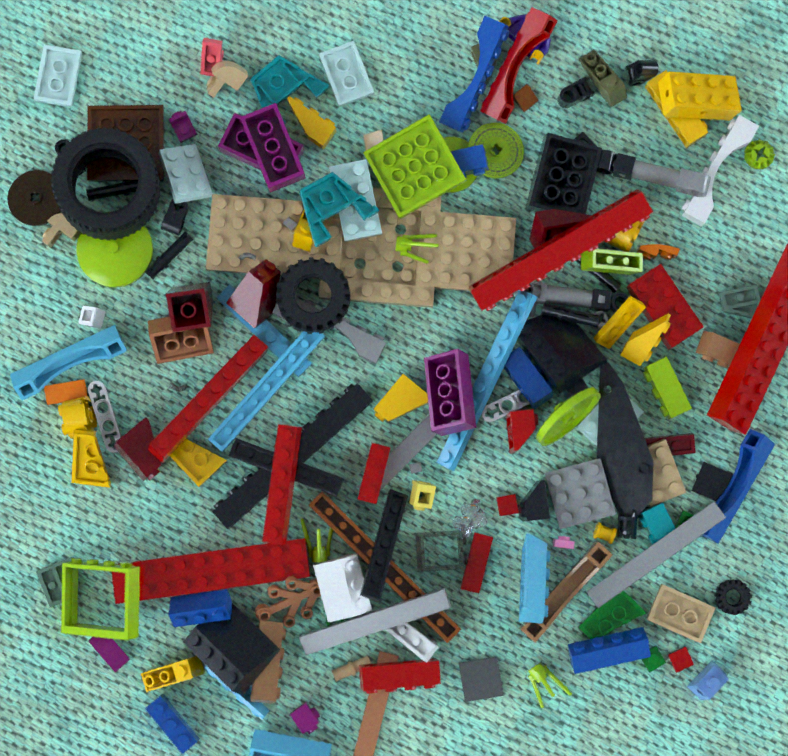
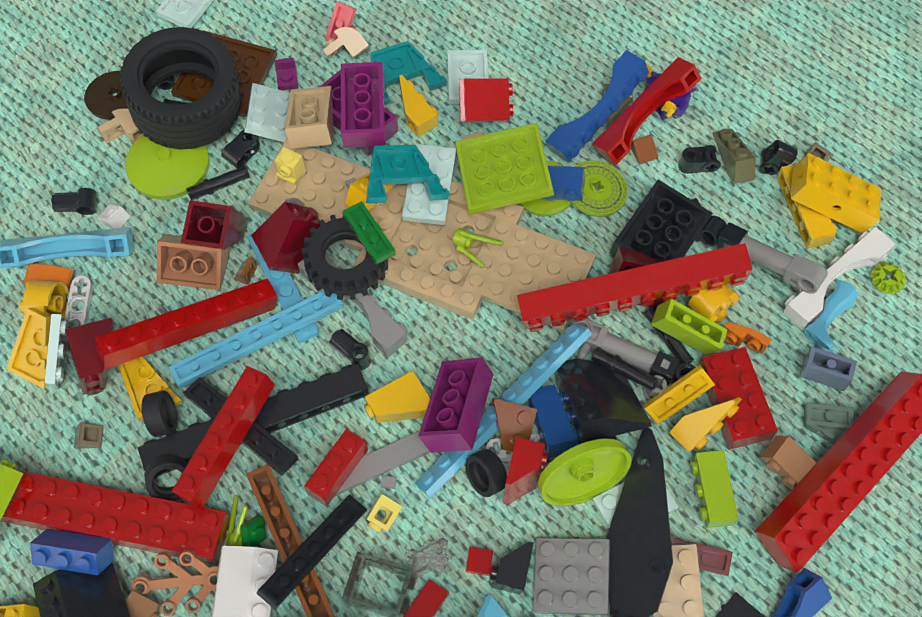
camera: 25 degrees right, 20 degrees down
(57, 314) = (81, 201): none -> black piece
(111, 458) = (56, 351): none -> light aqua plate
(164, 513) = (88, 436): none -> dark tan slope
(219, 480) = (159, 413): none -> black tyre
(227, 329) = (246, 271): none -> dark orange slope
(228, 171) = (310, 117): none -> tan slope
(230, 226) = (289, 166): none -> light yellow brick
(239, 519) = (157, 464): none -> black tyre
(328, 274) = (369, 232): none -> green plate
(330, 544) = (253, 531): none -> green plate
(342, 368) = (350, 348): none -> black piece
(372, 100) = (485, 99): none -> red slope
(490, 438) = (486, 472): none -> black tyre
(500, 393) = (513, 422): none -> dark orange wing
(674, 53) = (819, 151): none -> dark tan slope
(727, 190) = (835, 304): none -> medium azure animal
(730, 258) = (828, 368): none -> sand blue brick

